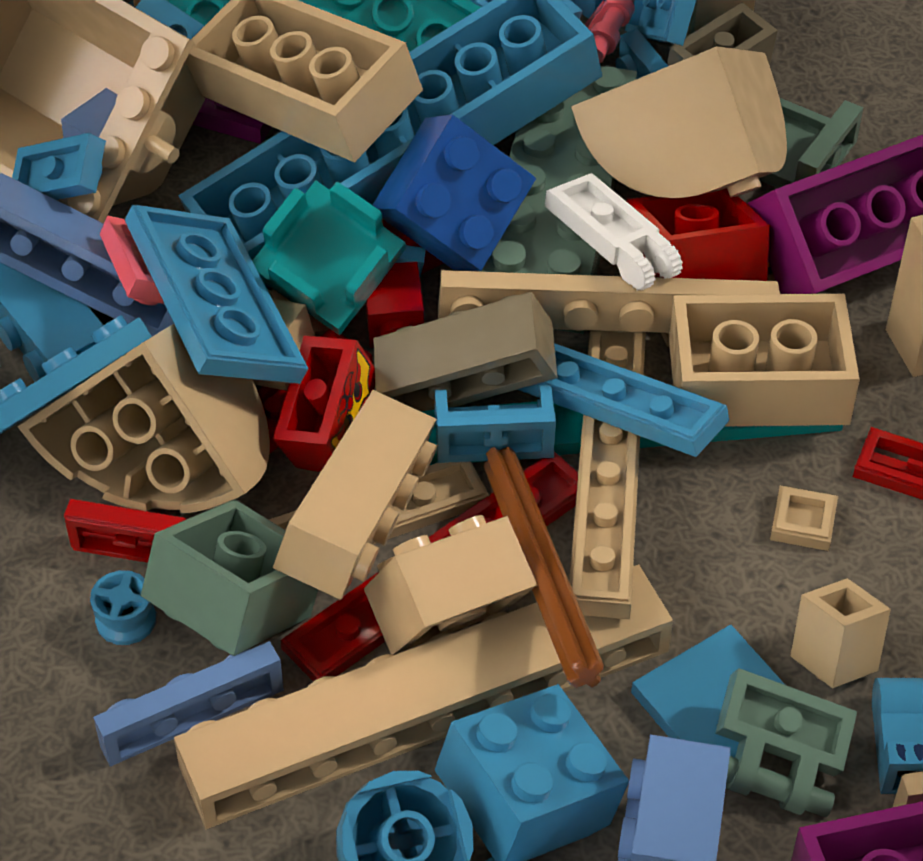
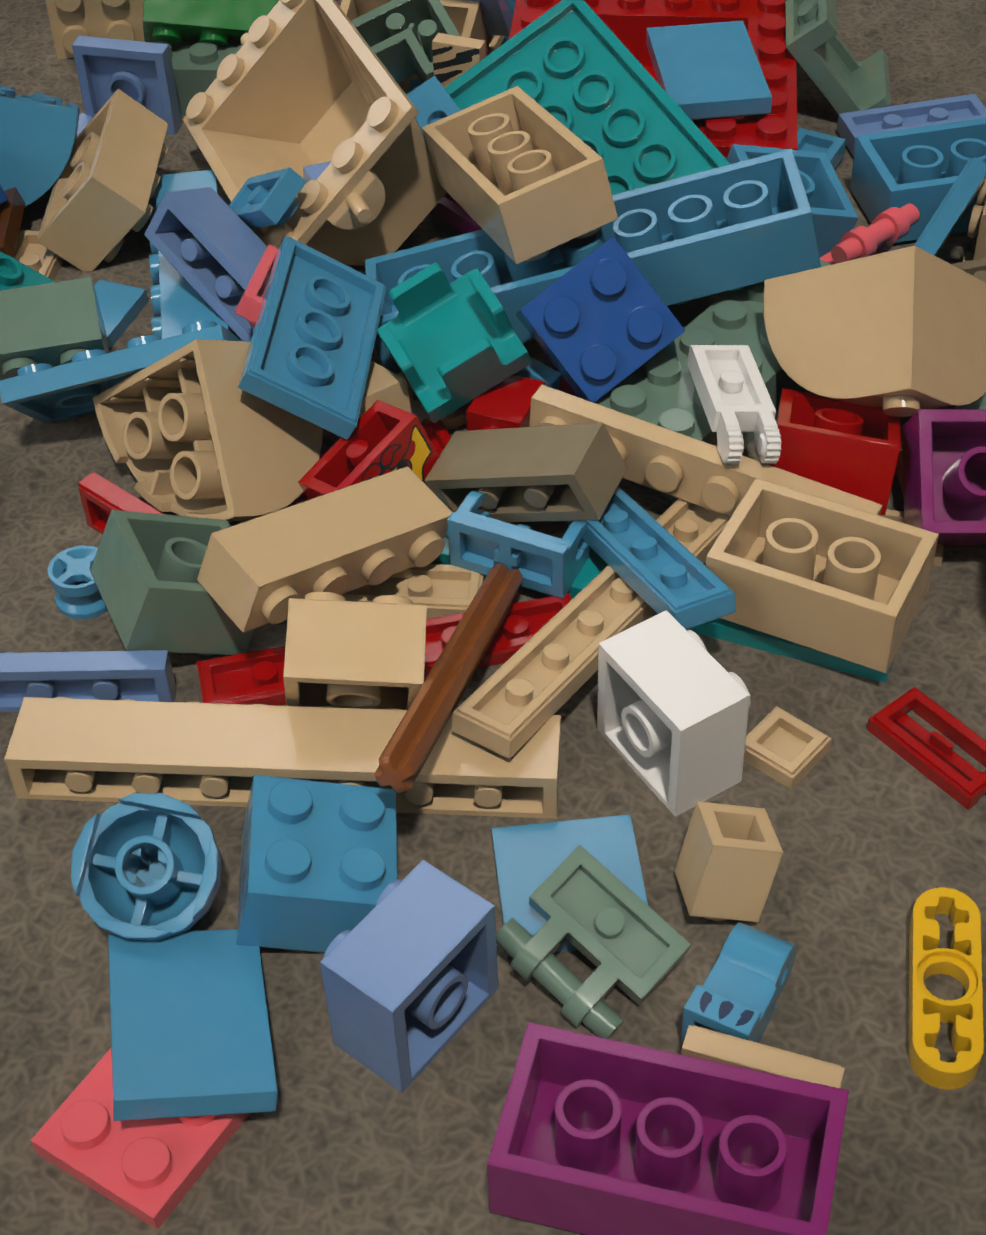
camera: 30 degrees right, 5 degrees down
(723, 525) = (672, 711): none -> white brick

